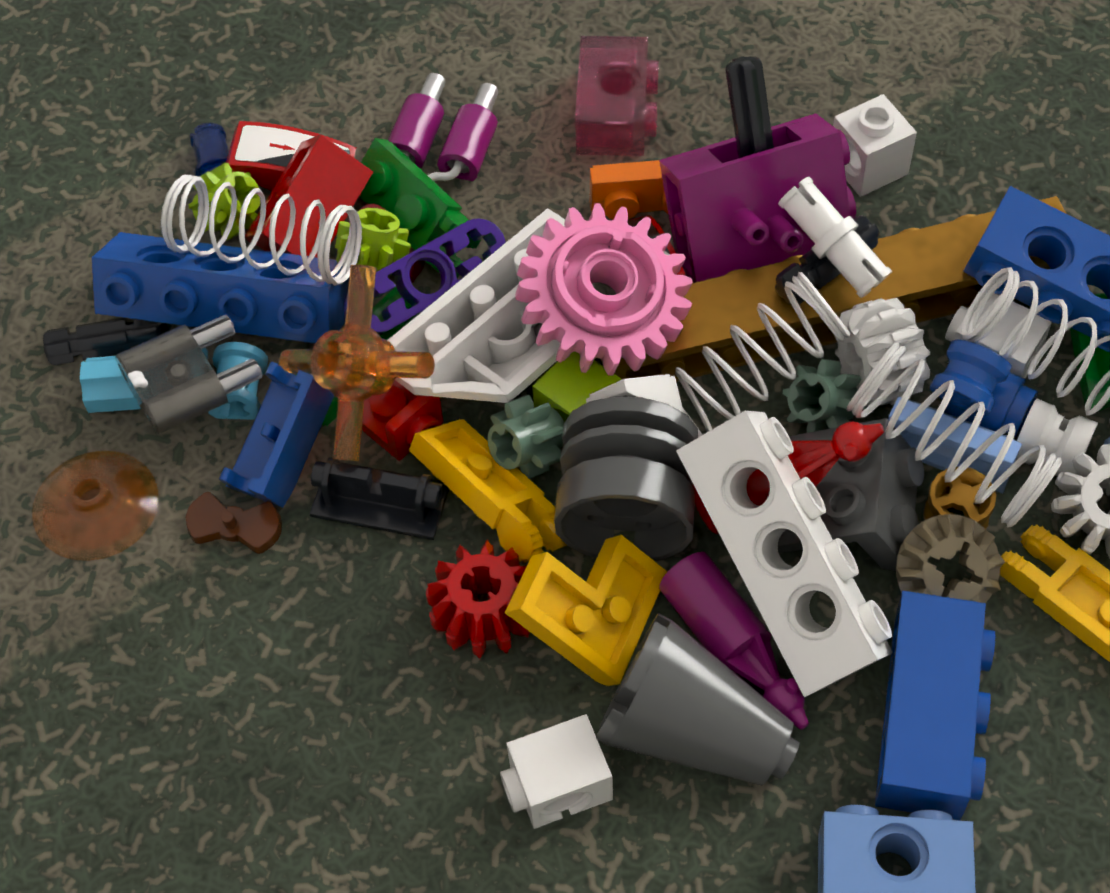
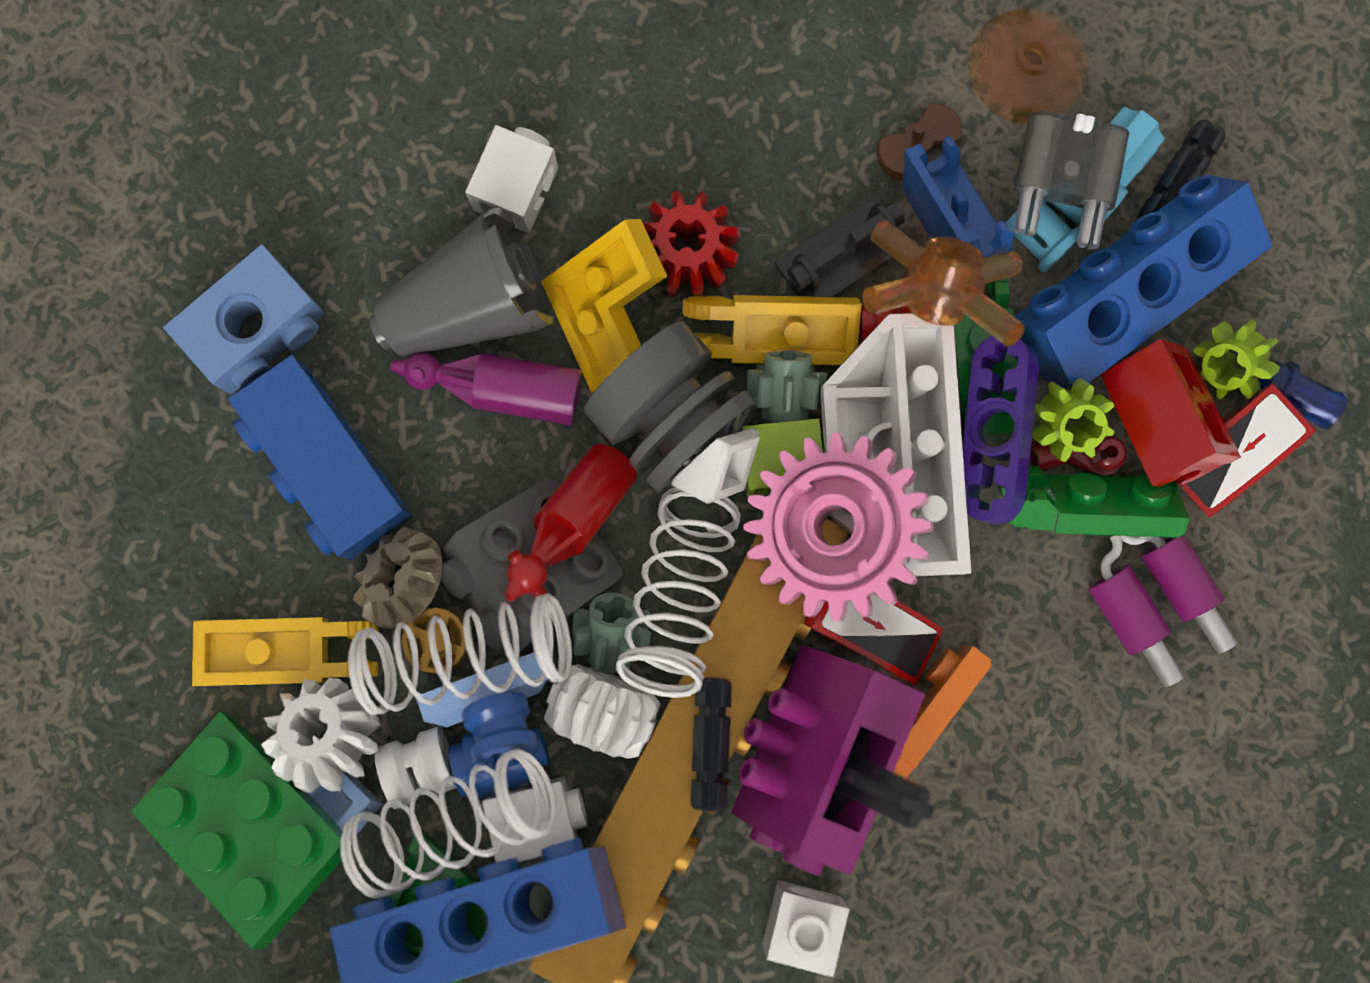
camera: 125 degrees right, 25 degrees up
(321, 244) = (1089, 349): white piece -> none
(613, 96) = (1100, 788): clear pink brick -> none
(720, 470) = (503, 449): white brick -> none
(834, 237) = (709, 749): white pin -> none

